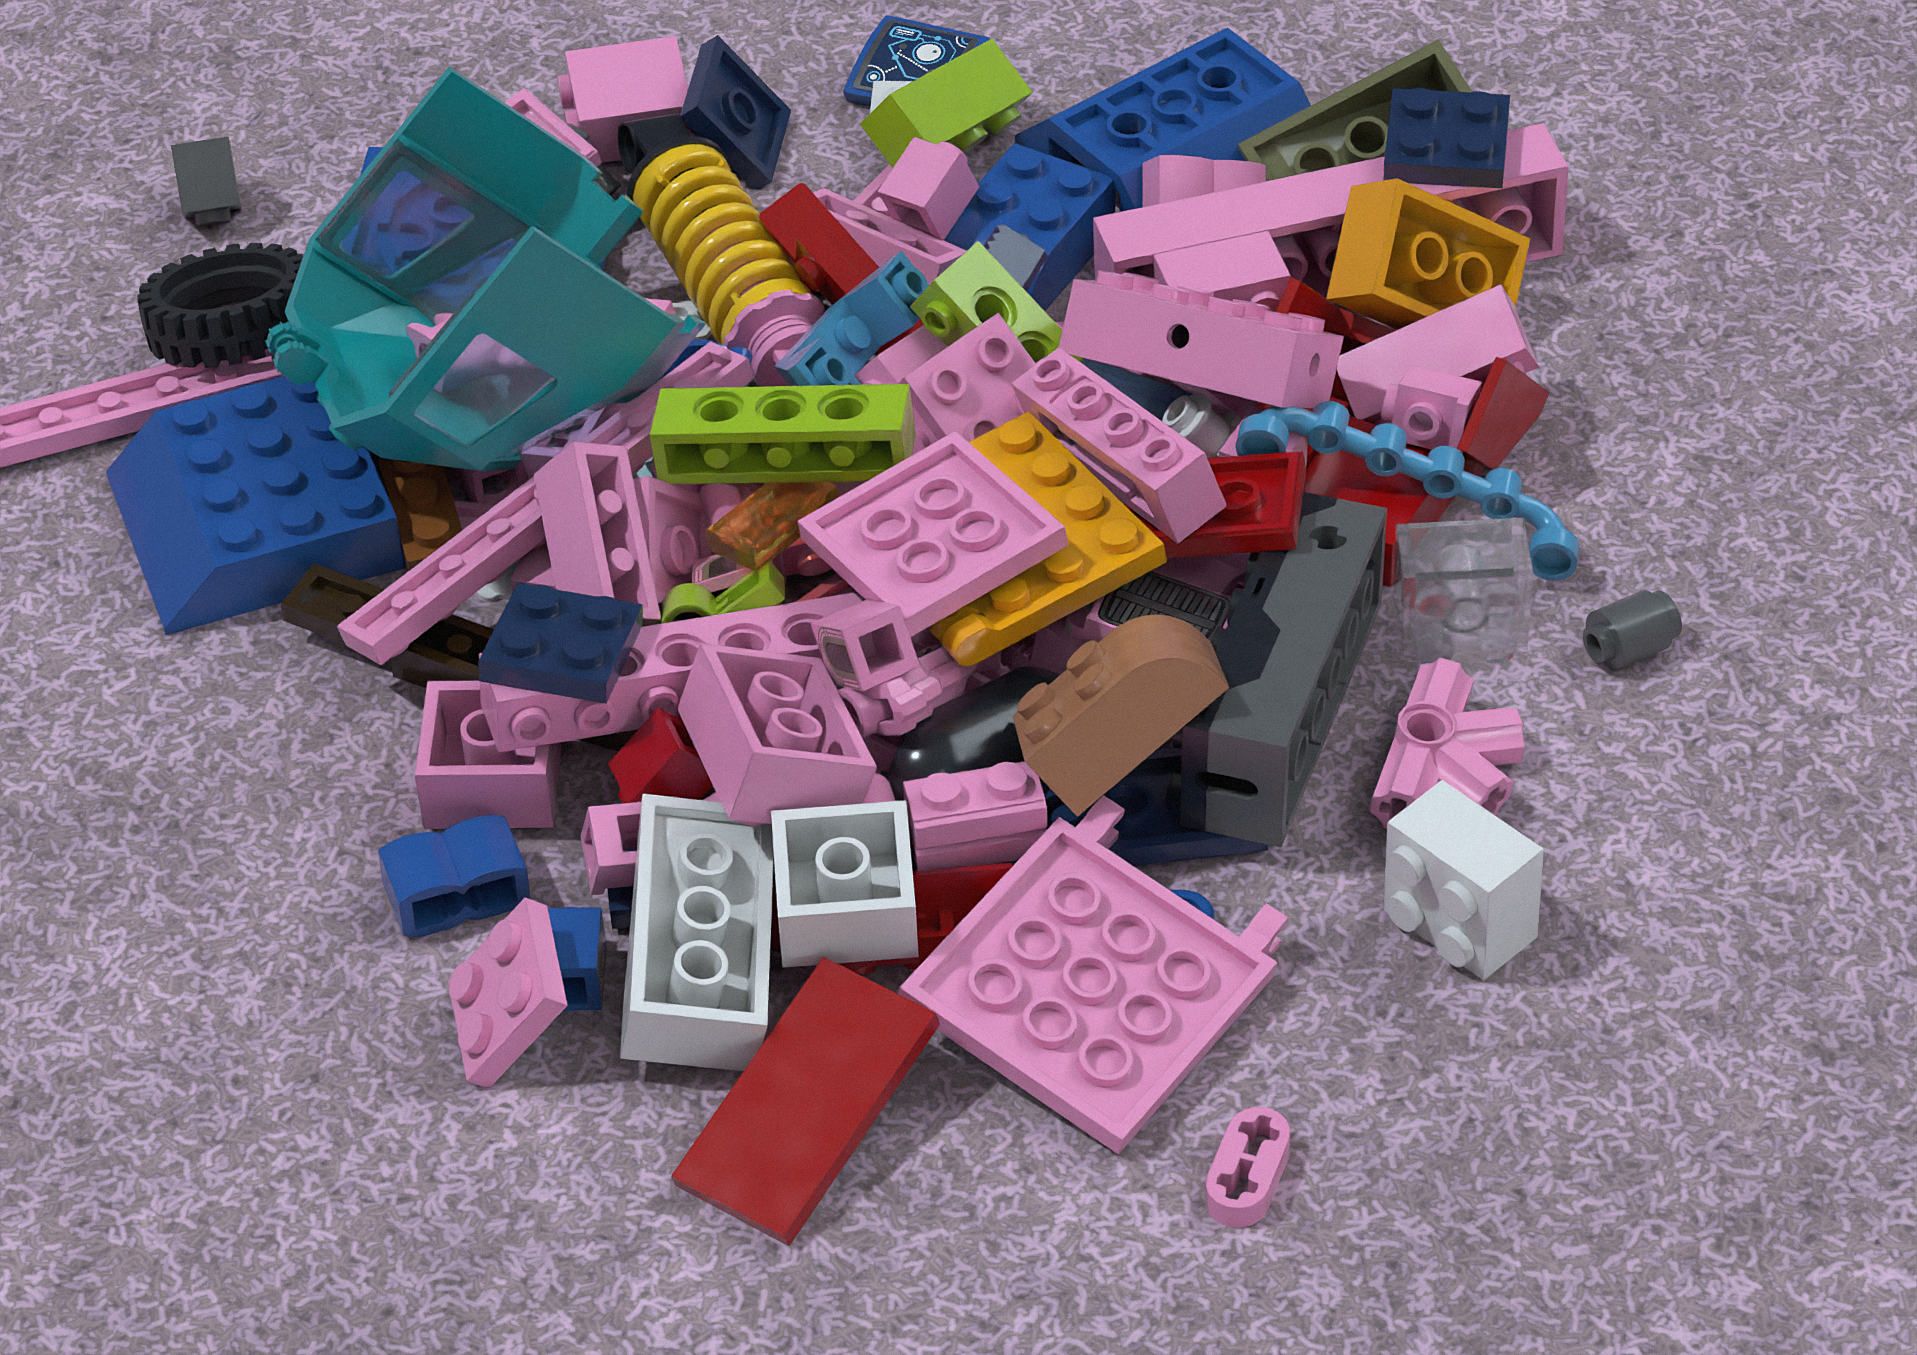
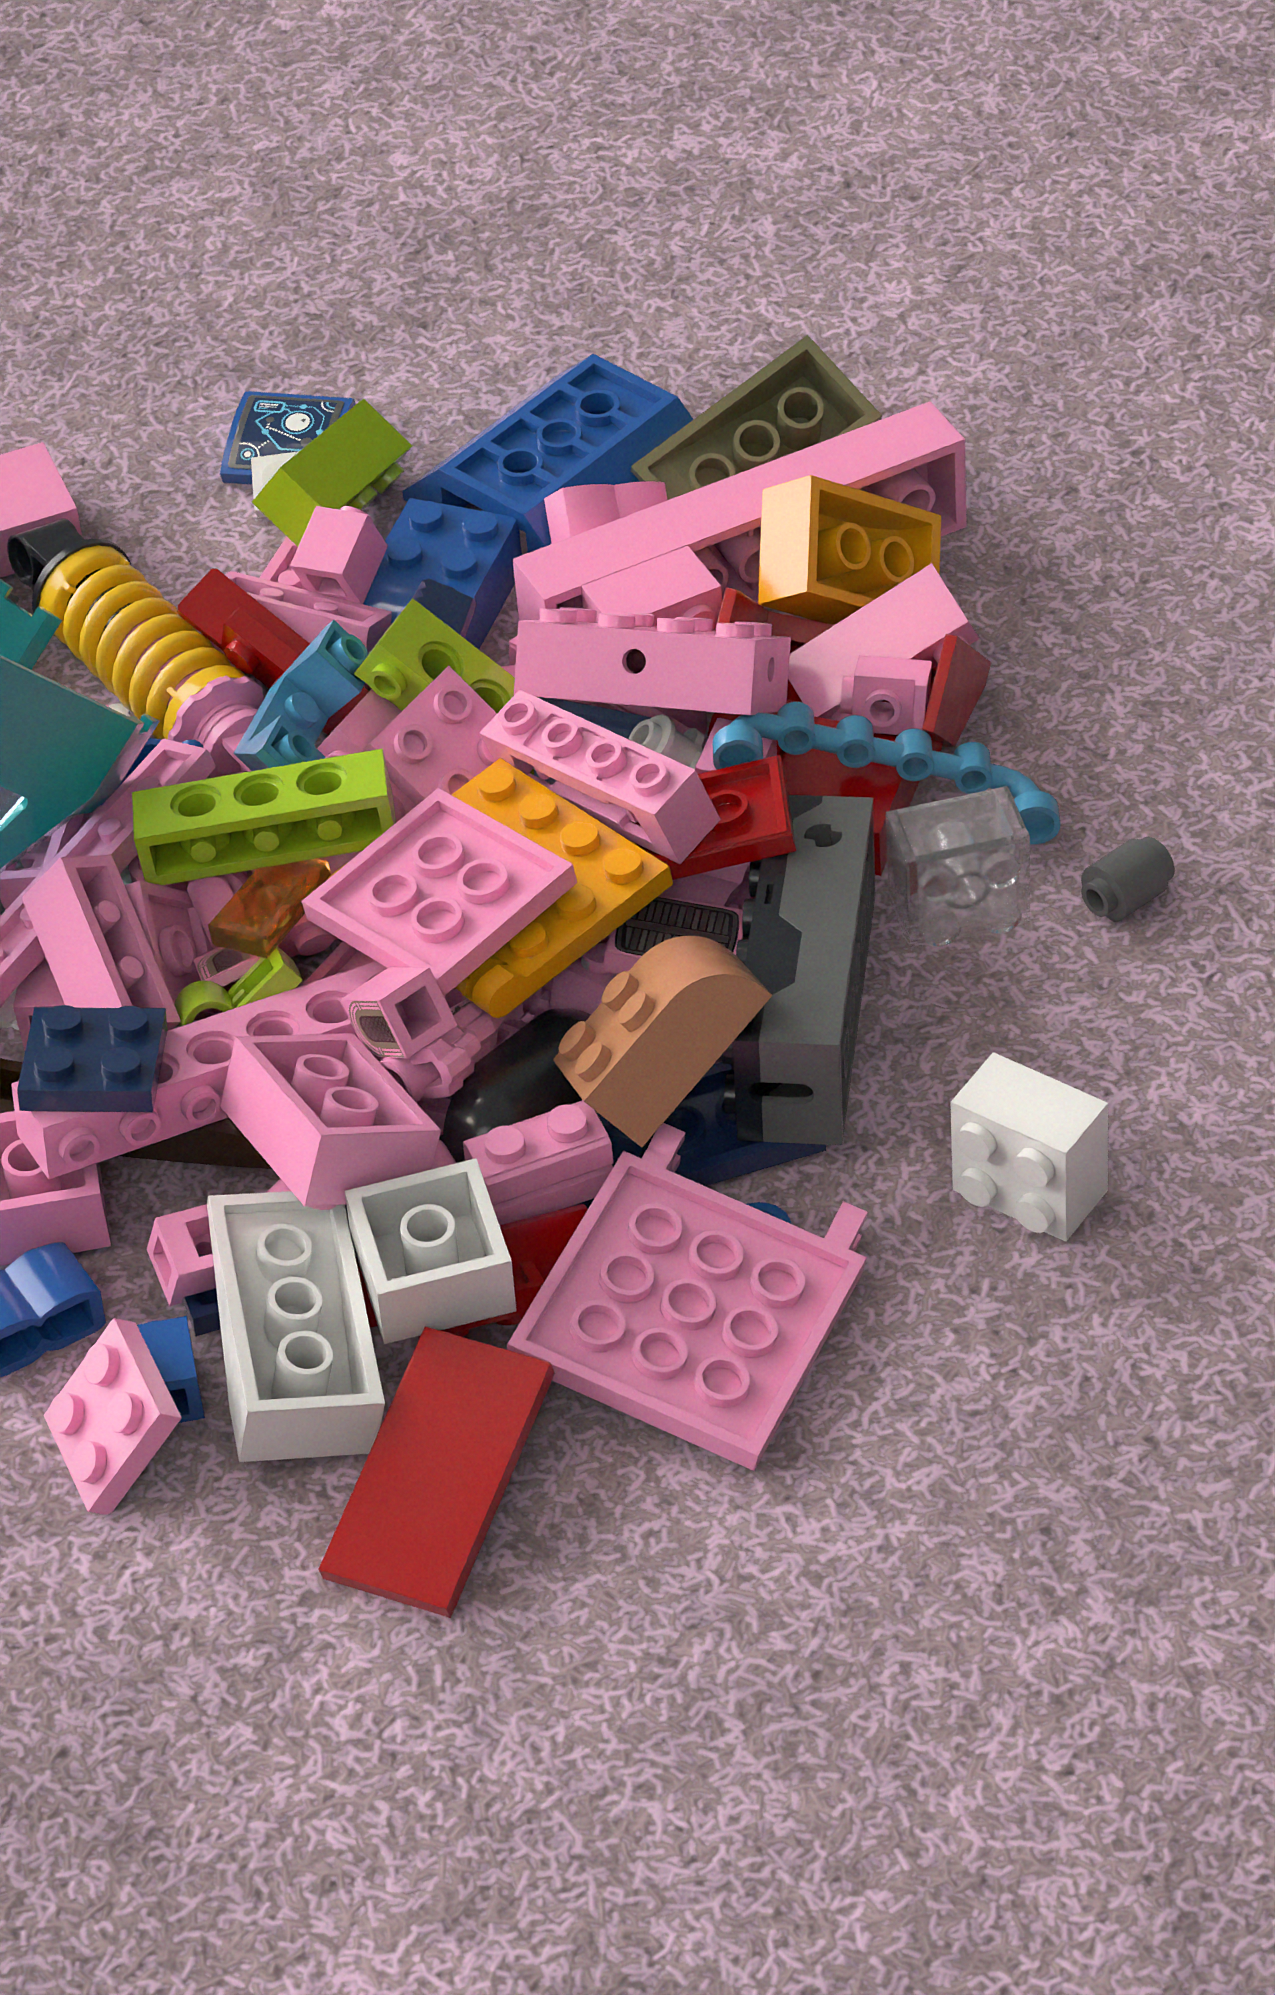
camera: 10 degrees left, 0 degrees up
(660, 762) = (214, 1161): red brick -> none
(736, 112) = (121, 507): dark blue plate -> none
(1235, 1163) = (871, 1459): bright pink beam -> none
(1445, 743) = (975, 1019): bright pink piece -> none
(1447, 137) = (842, 429): dark blue plate -> none

